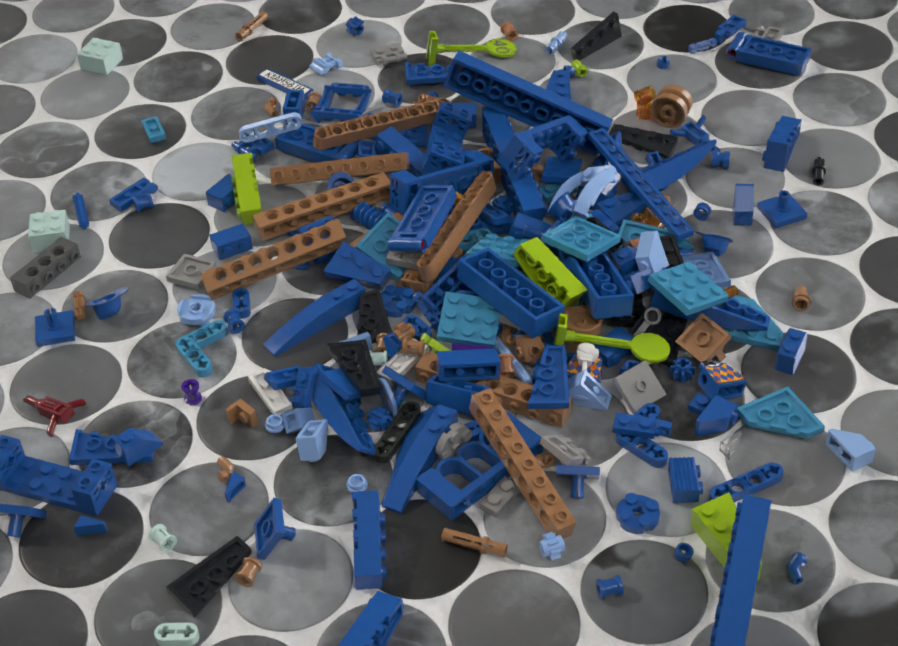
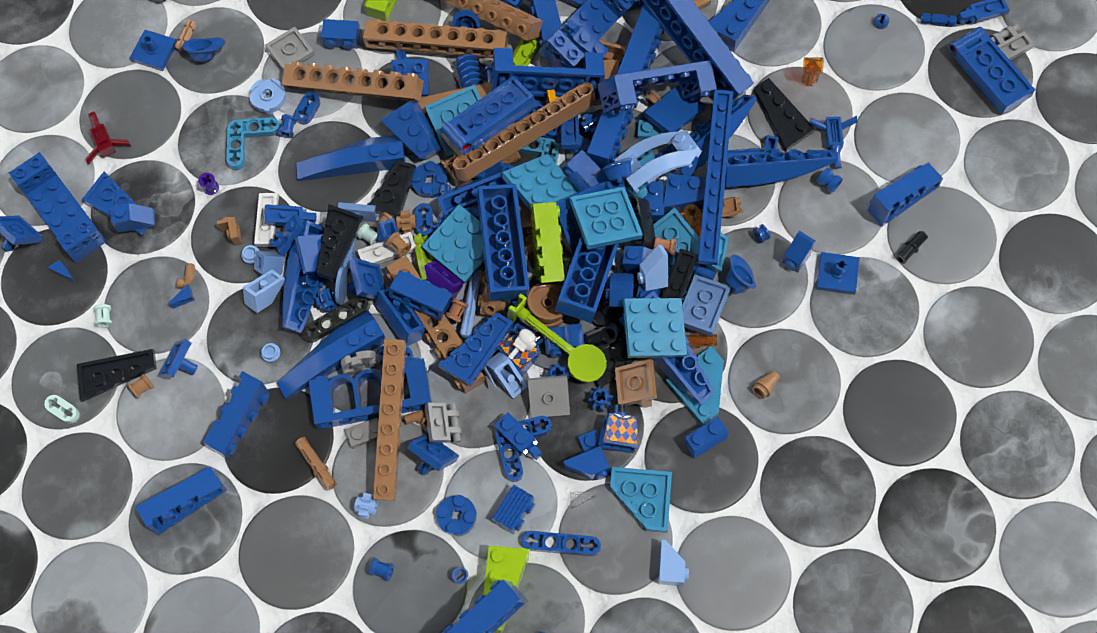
camera: 35 degrees right, 25 degrees up
(671, 106) = (832, 90): medium nougat wheel -> none

